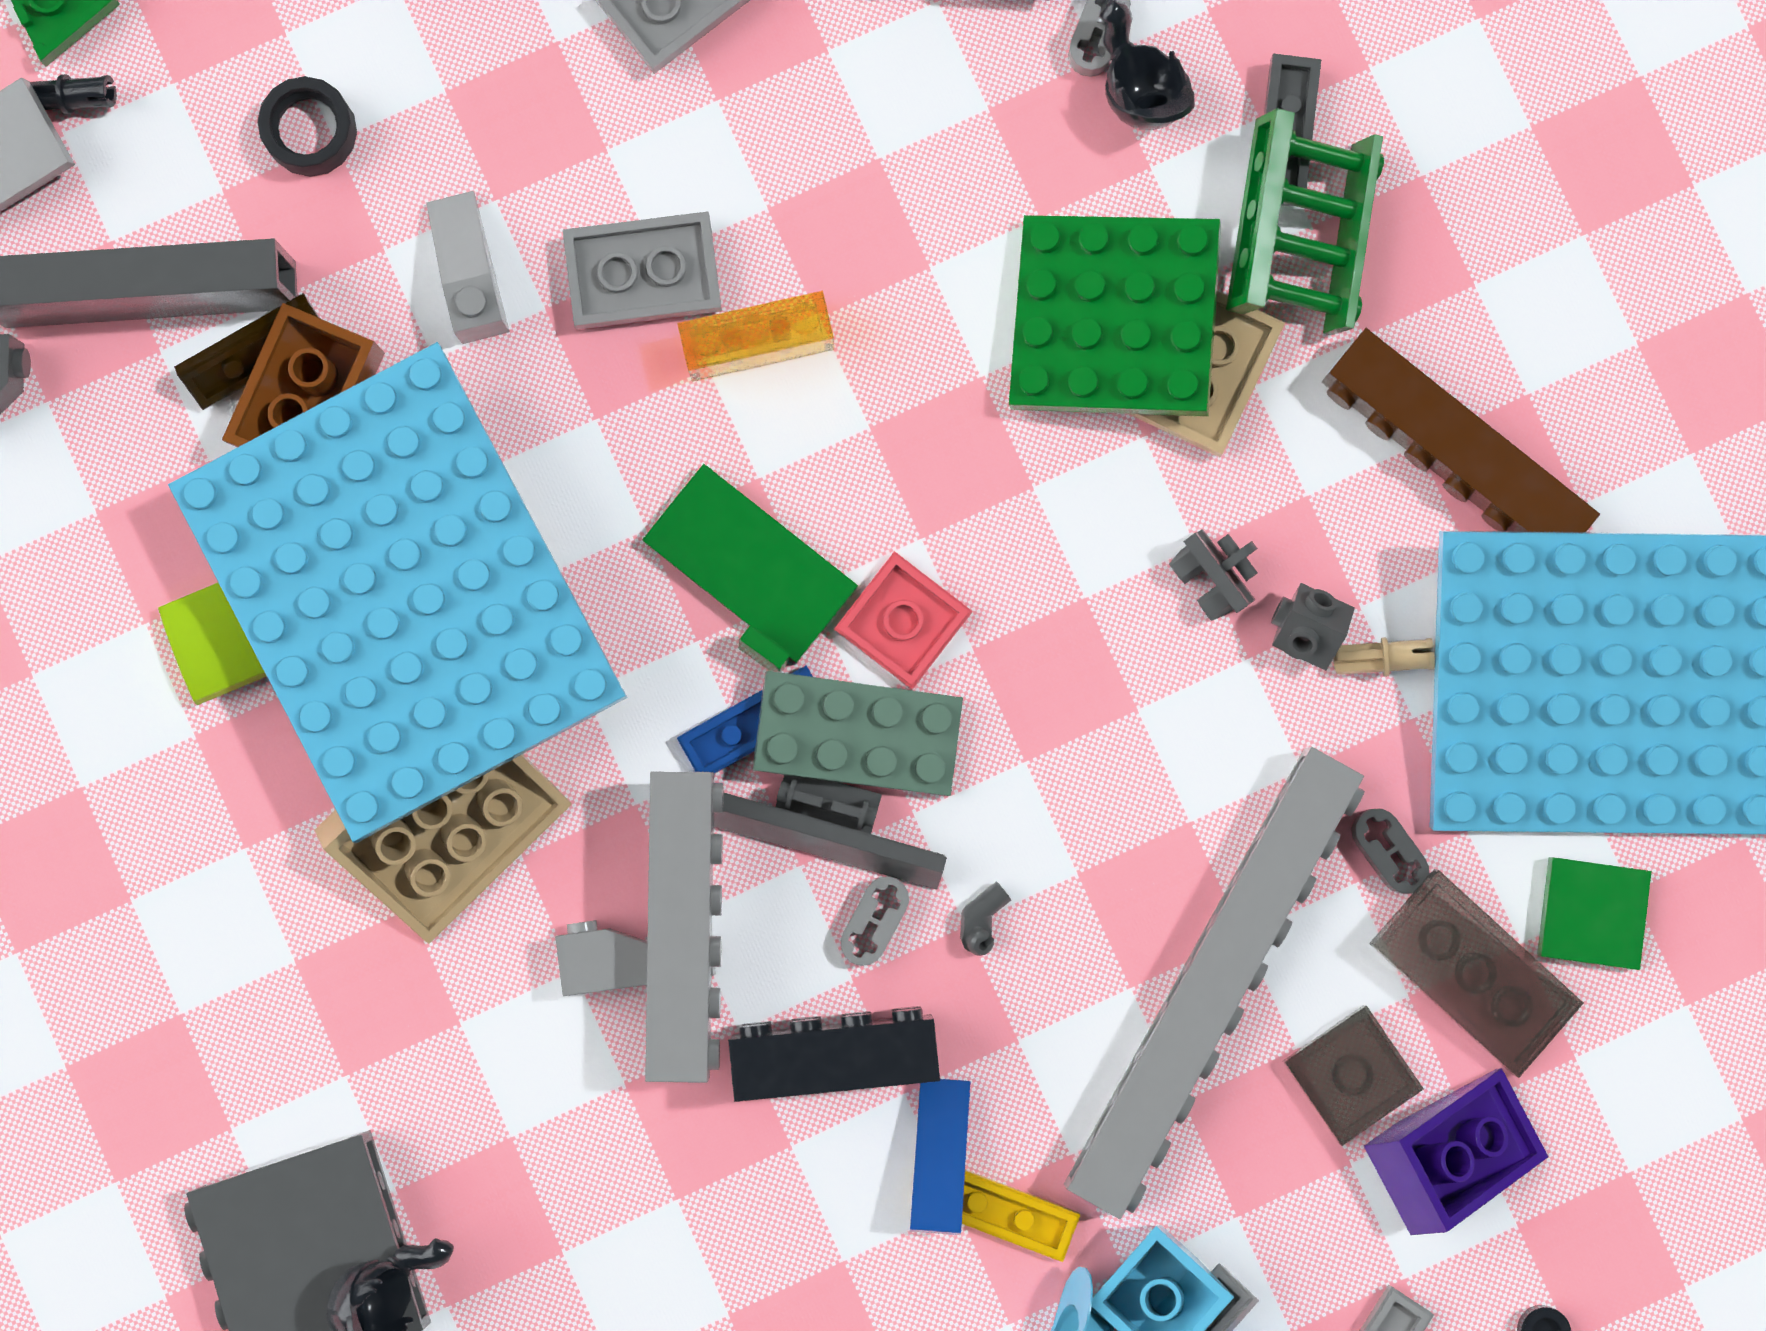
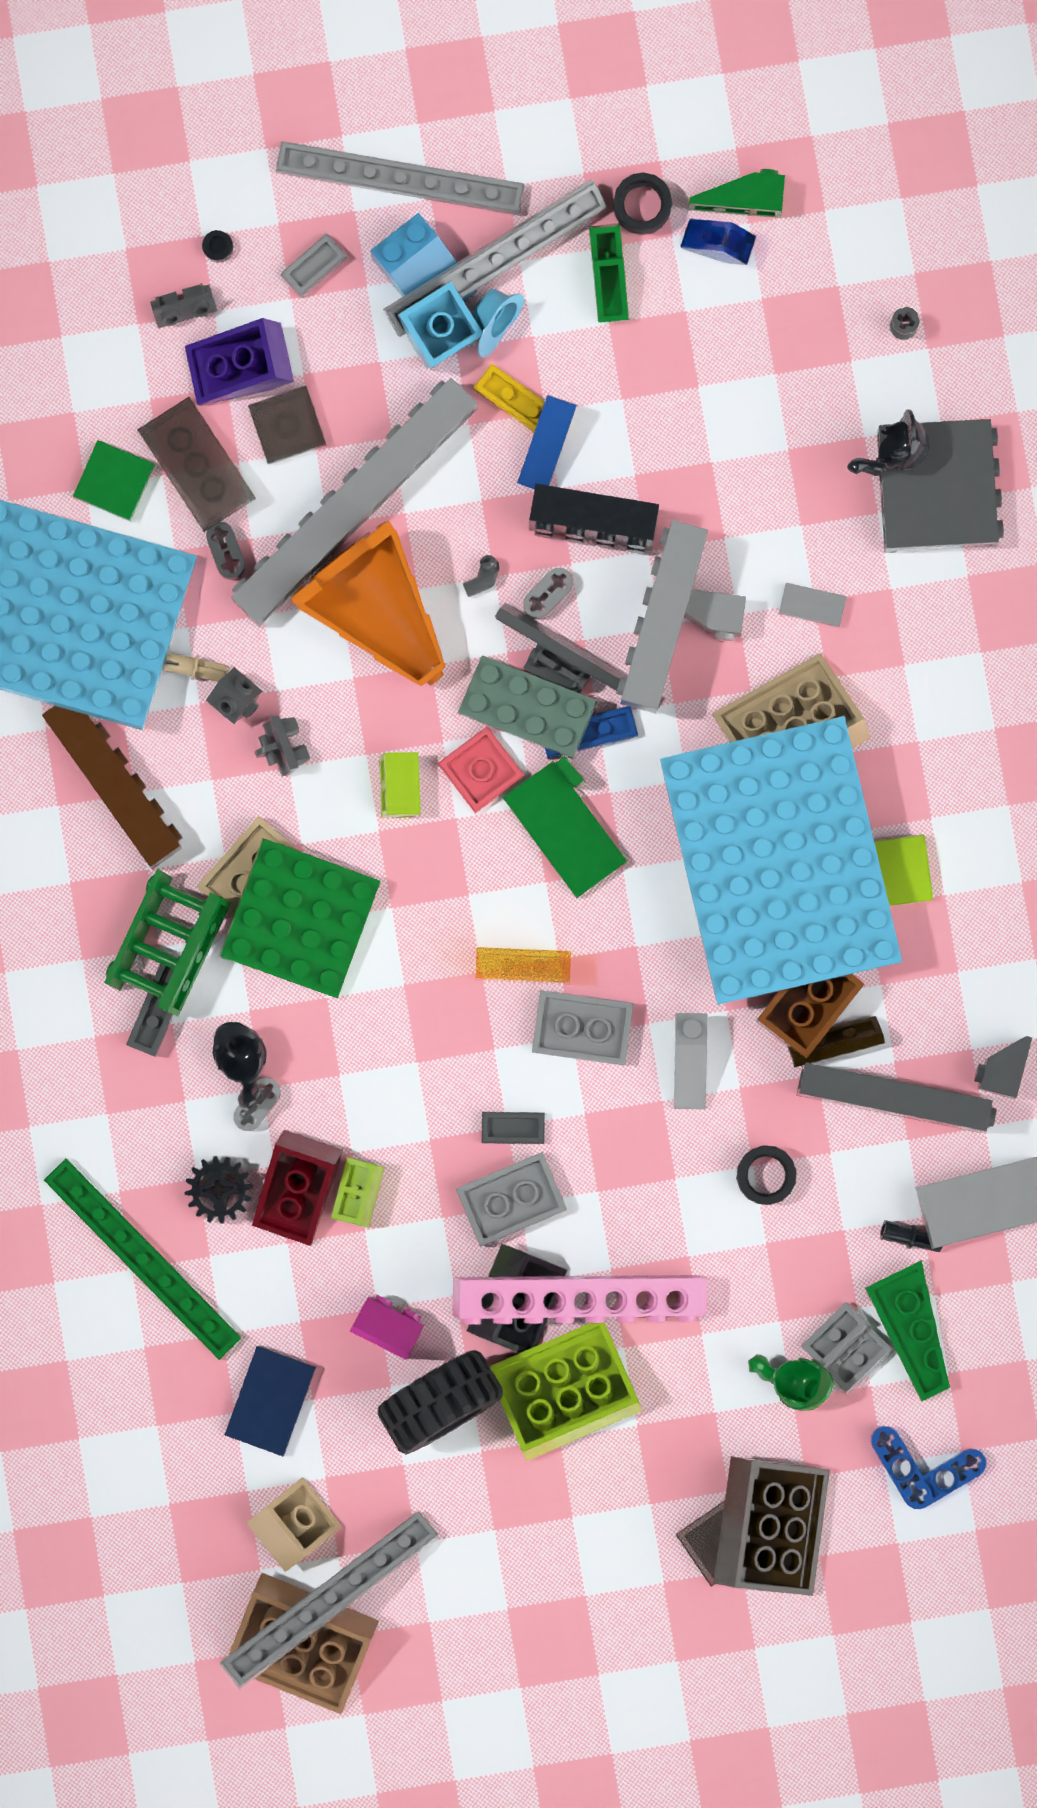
camera: 160 degrees left, 0 degrees up
(459, 1015) = (812, 605): none -> light grey tile
(707, 98) = (513, 1127): none -> dark grey tile
(1020, 561) = (399, 784): none -> lime hinge
(1137, 821) = (376, 605): none -> orange cone
(1587, 1206) = (170, 310): none -> dark grey hinge

